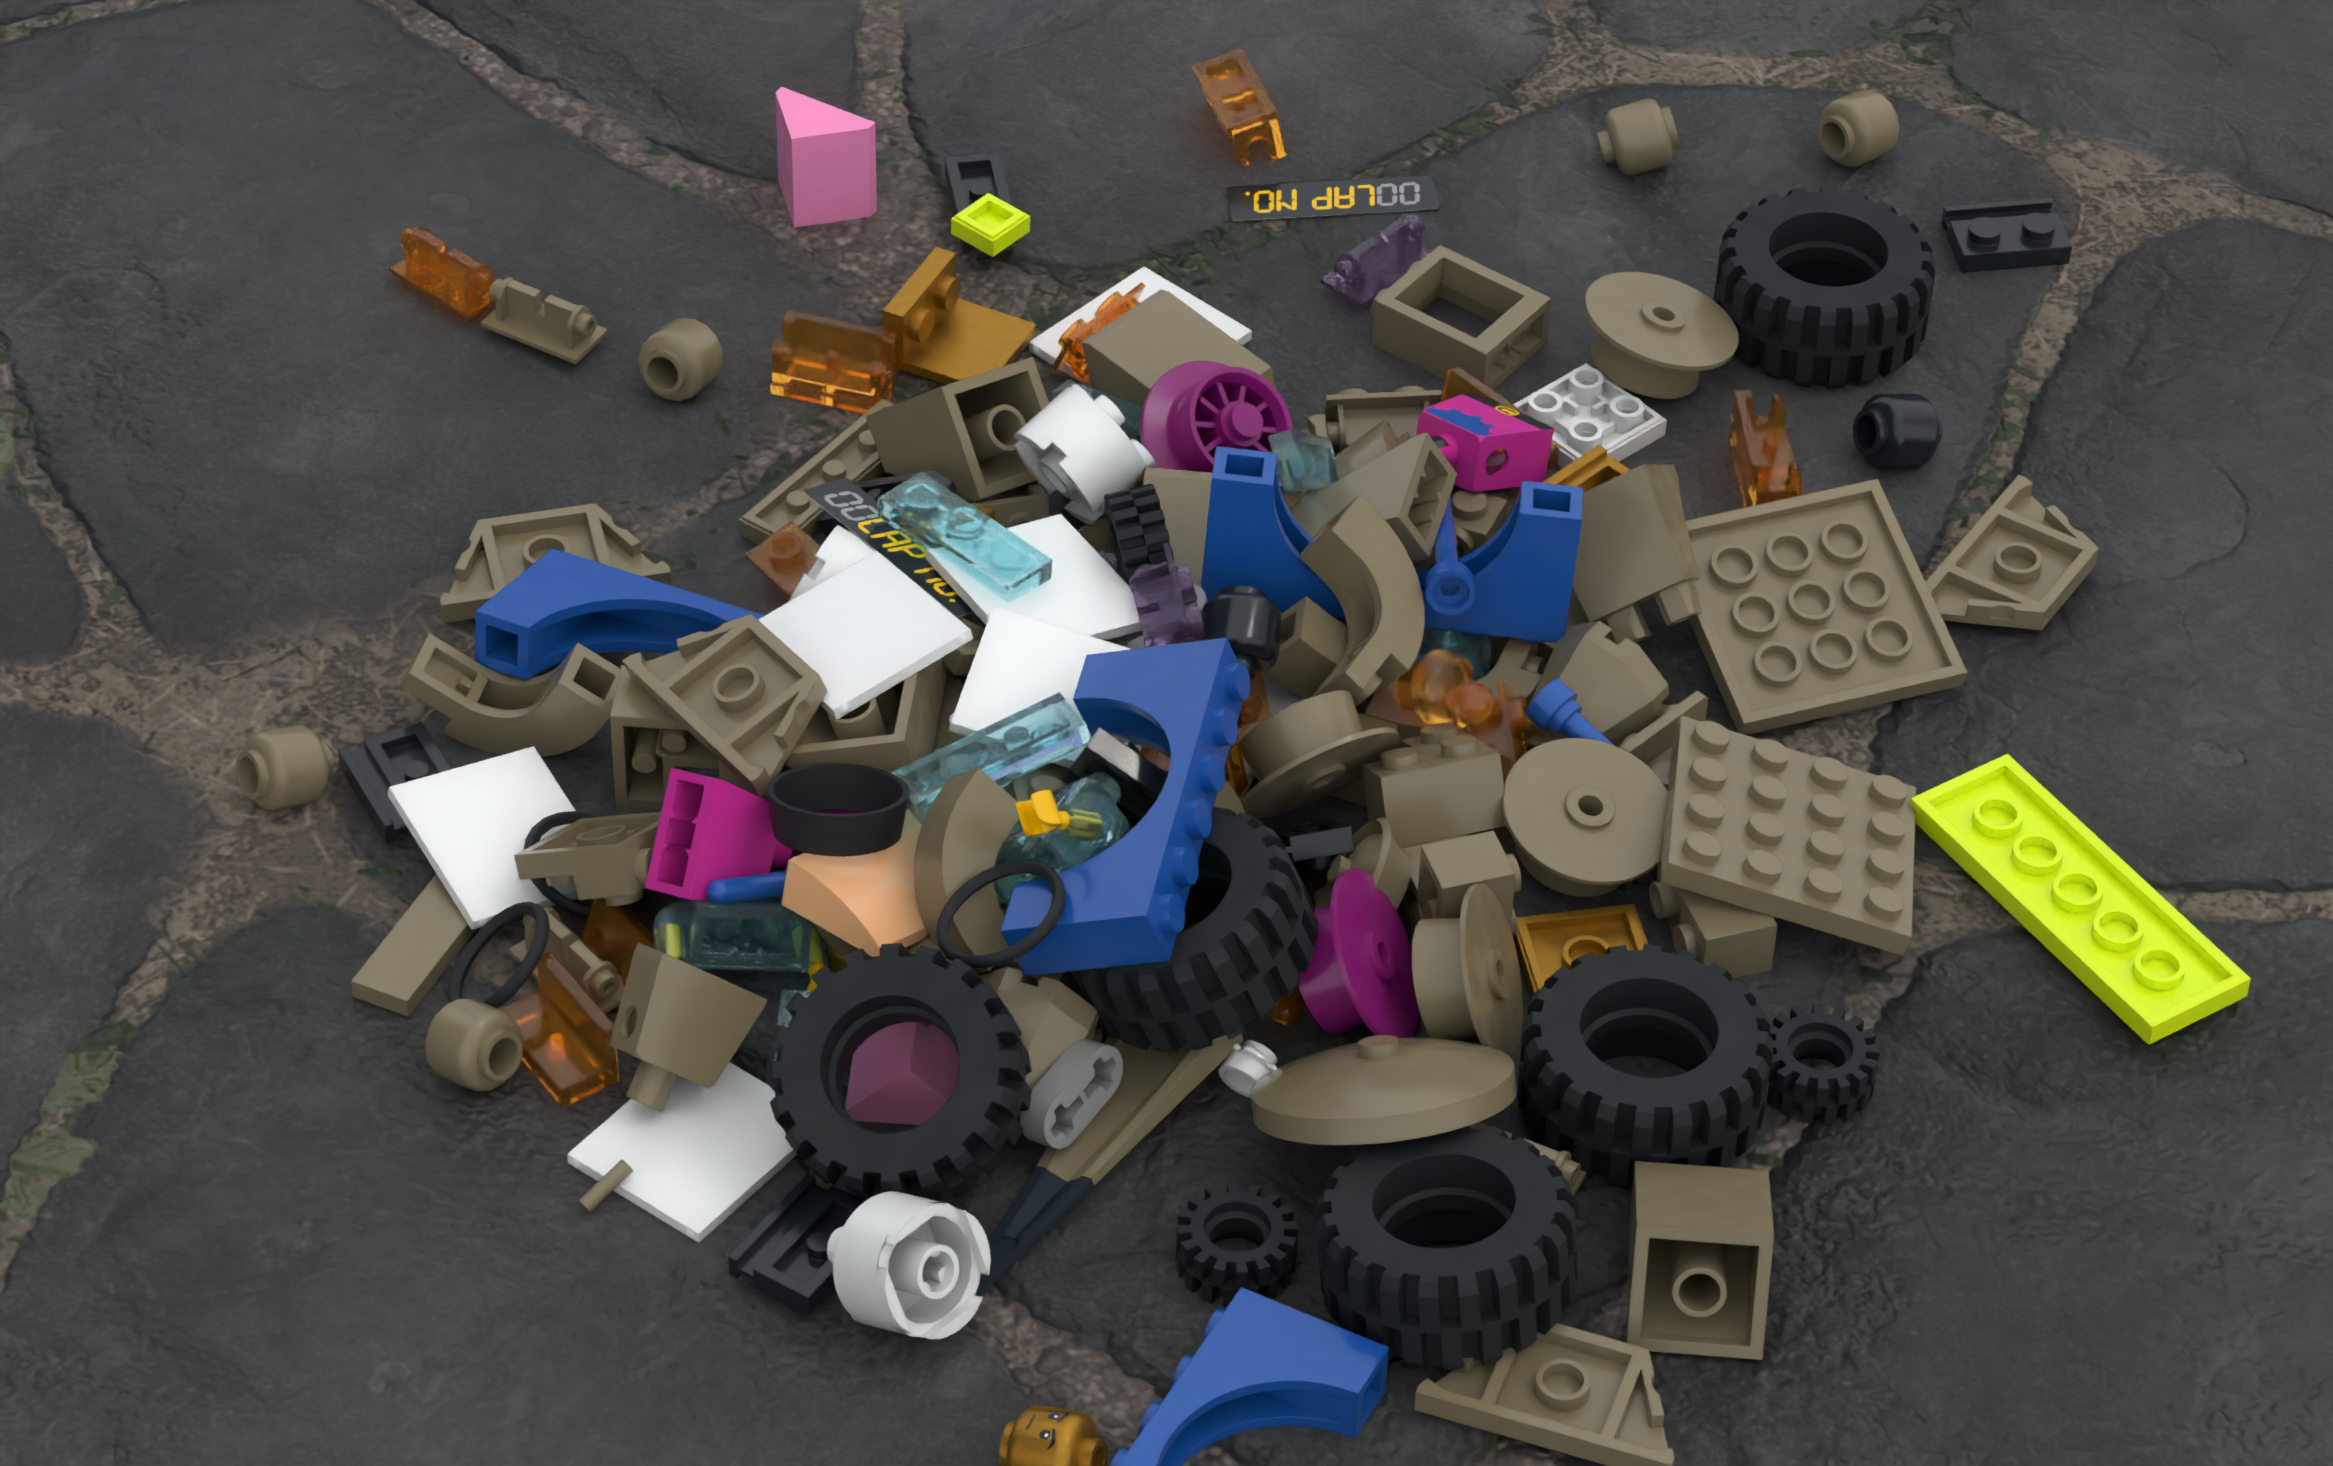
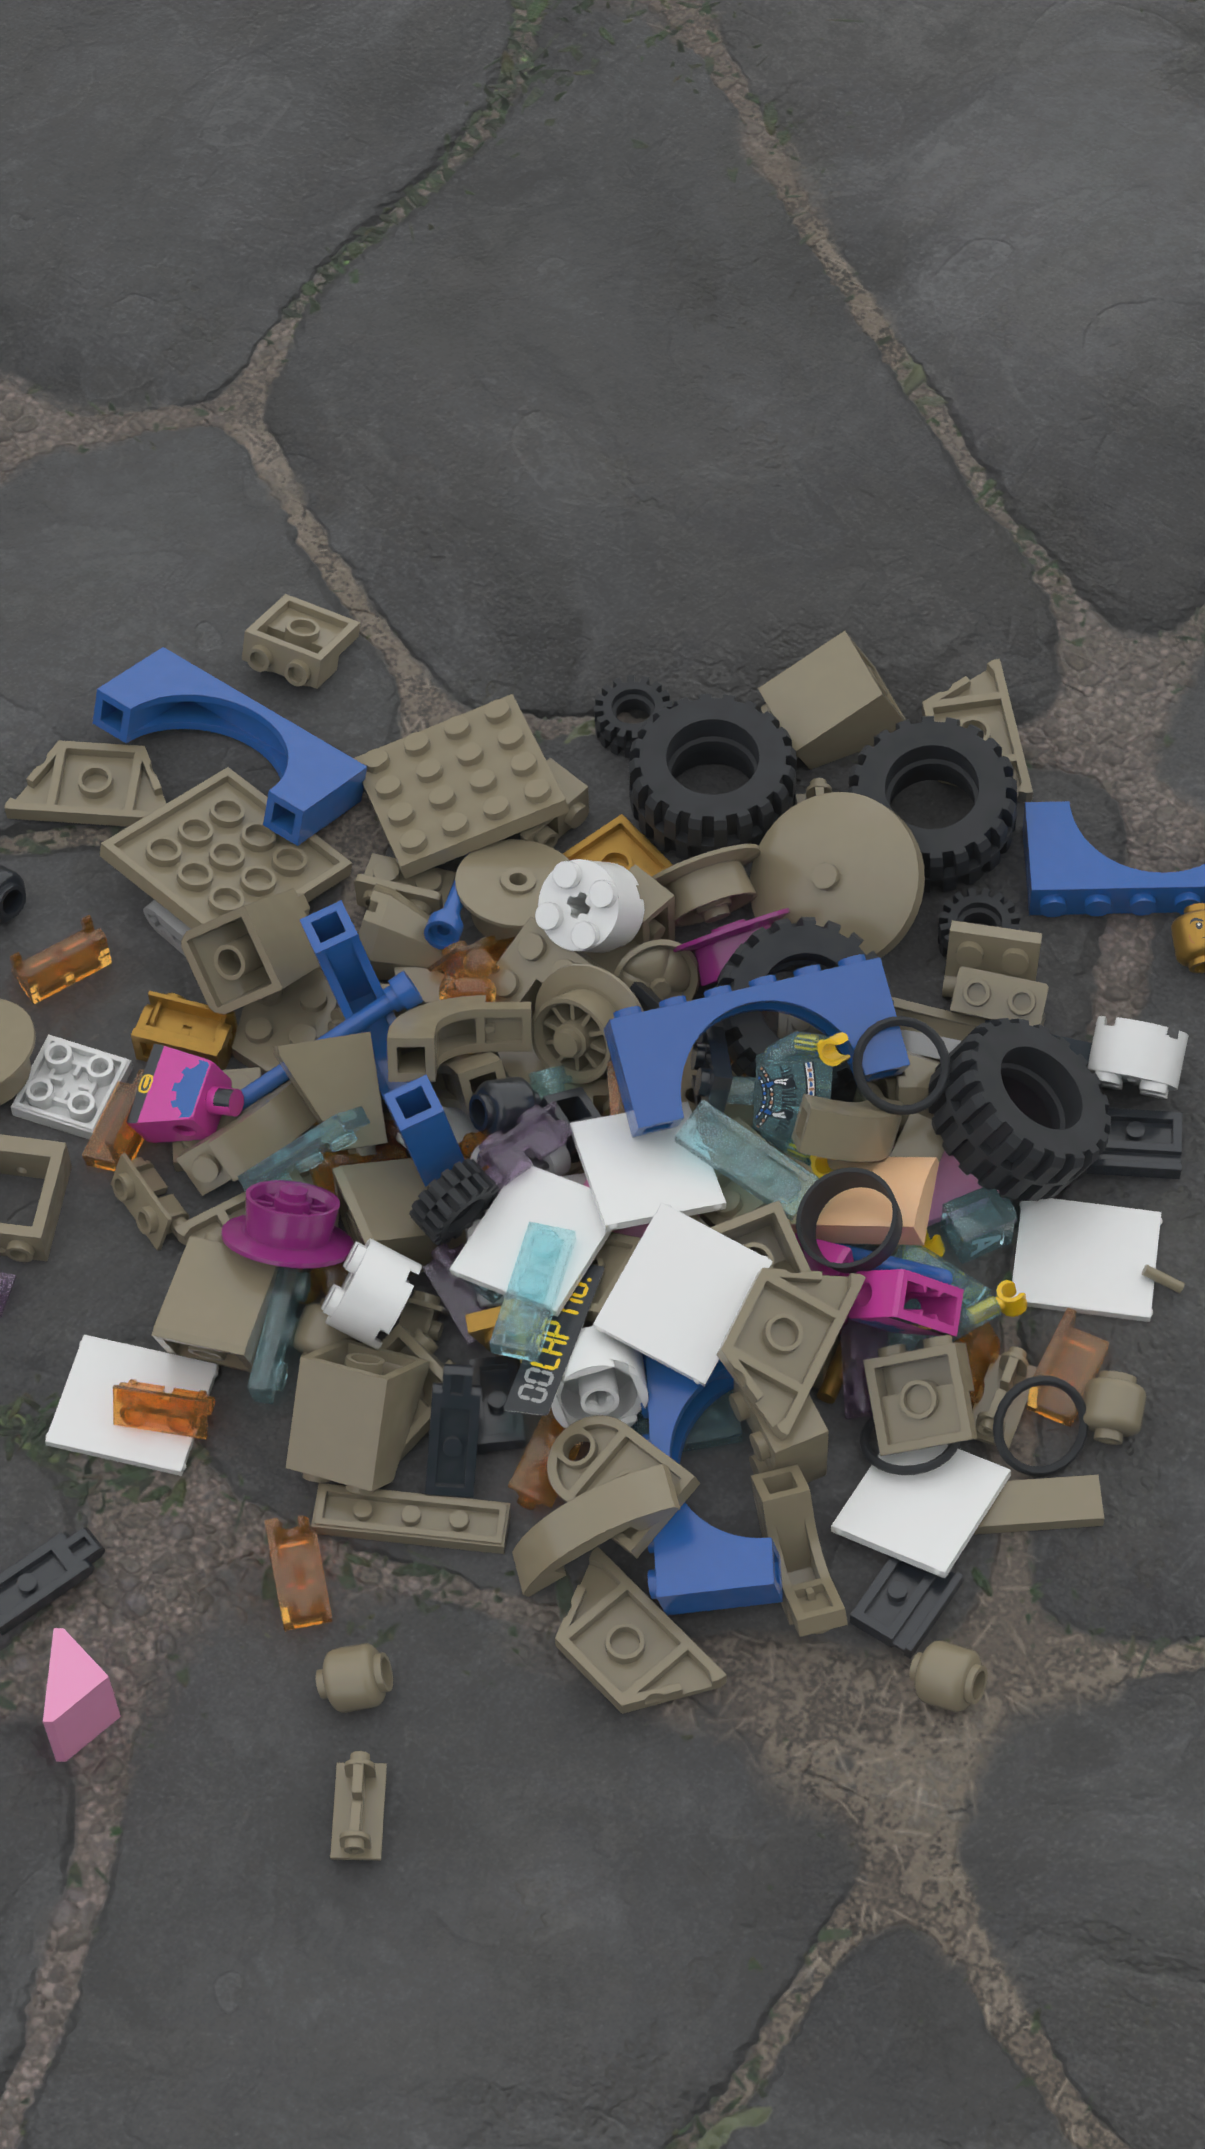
camera: 115 degrees left, 15 degrees up
(444, 276) = (341, 1914): clear orange hinge -> none
(664, 524) = (591, 1519): none -> dark tan slope
(679, 1024) = (1054, 1274): dark tan torso -> none
(708, 566) = (612, 1454): none -> dark tan tile
(947, 335) = (212, 1511): pearl gold bracket -> none
(990, 224) = (79, 1541): neon yellow tile -> none
(1092, 1188) = (998, 996): none -> dark tan bracket
(1147, 1208) = (990, 950): none -> dark tan plate
(1263, 702) = (549, 1080): none -> clear light blue plate
(1467, 789) = (590, 906): none -> white brick
(1898, 727) = (174, 694): none -> blue arch
(2079, 899) = (400, 648): neon yellow plate -> none
(2140, 798) = (298, 641): none -> dark tan plate

